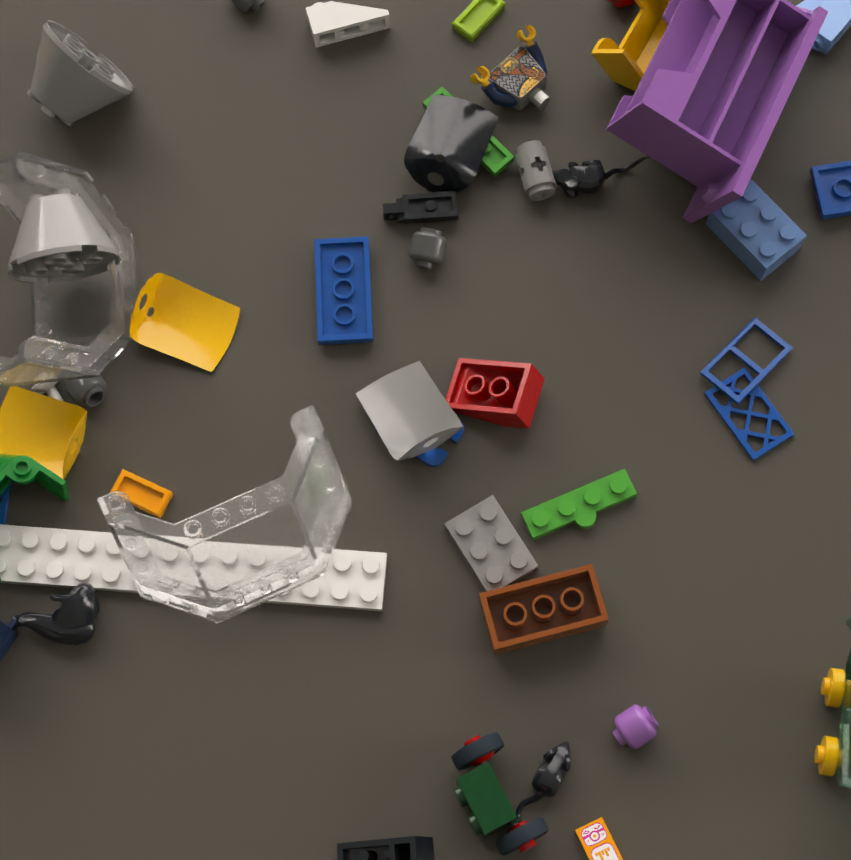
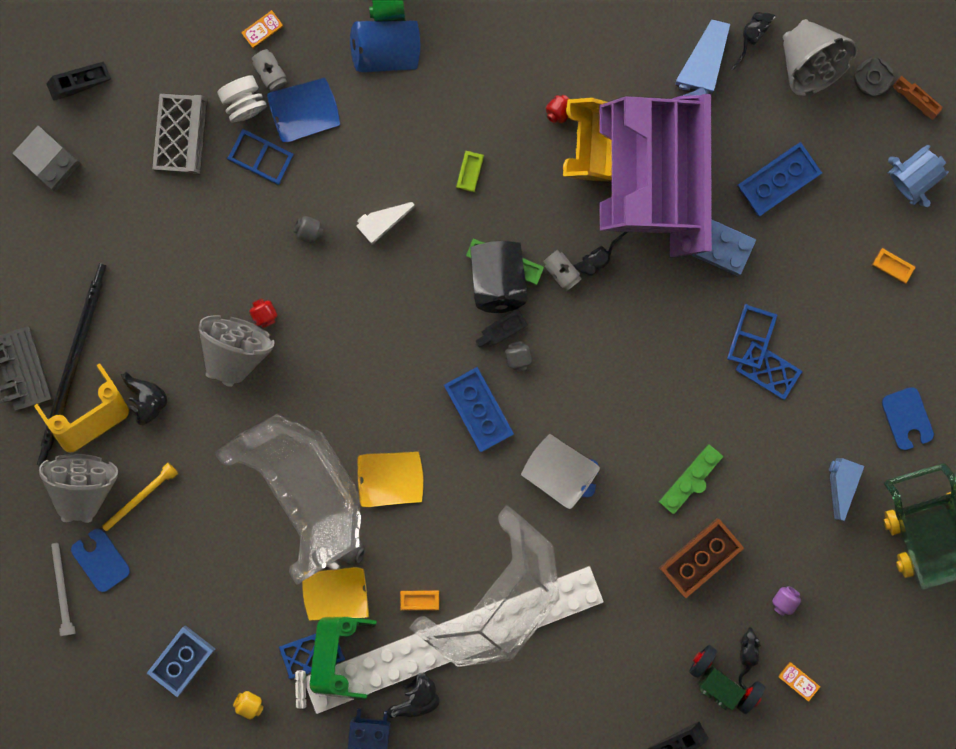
camera: 30 degrees left, 15 degrees up
(60, 241) = (291, 471): light grey cone -> none
(139, 61) = (263, 313): none -> red head
(491, 545) = (650, 530): light grey plate -> none
(495, 391) = (606, 432): red slope -> none
(518, 77) = (520, 208): torso -> none
(794, 589) = (844, 481): none -> medium blue slope

